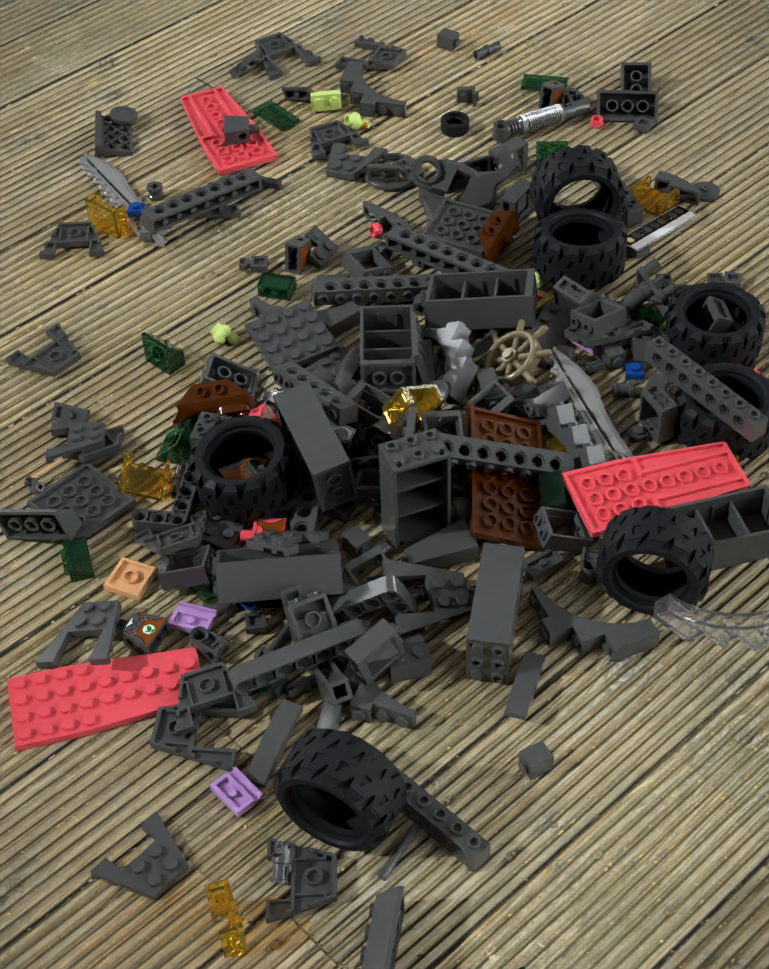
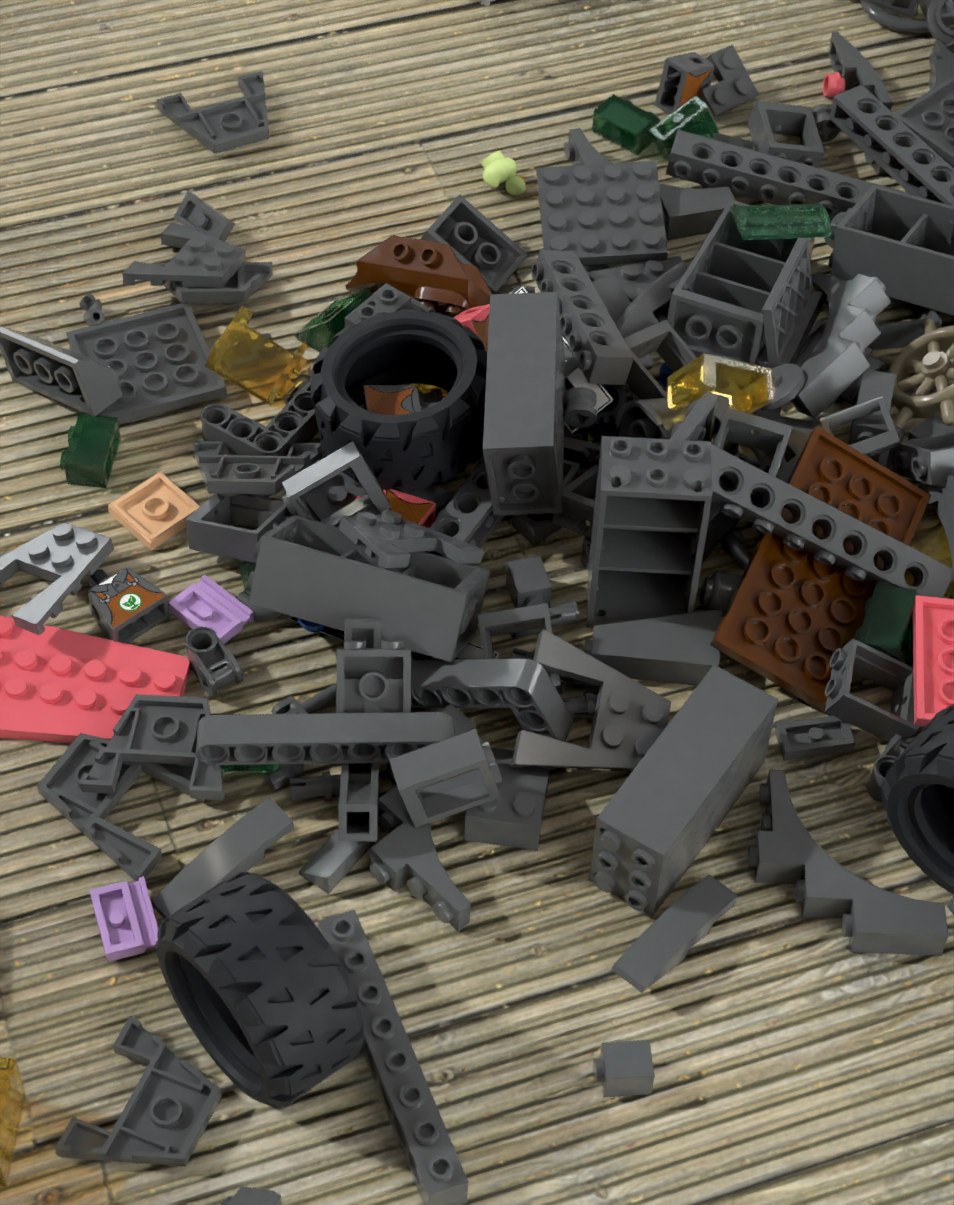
camera: 20 degrees right, 5 degrees up
(162, 353) = (391, 171): clear green slope -> none
(225, 518) = (348, 456): none -> dark grey window
(255, 622) = (302, 655): dark grey plate -> none
(256, 264) = (613, 79): dark grey plate -> none
(281, 862) = (126, 1066): dark grey piece -> none
(314, 270) = (691, 118): none -> clear green brick
(394, 308) = (782, 221): none -> clear green piece
(399, 851) = (325, 1127): dark grey bar -> none

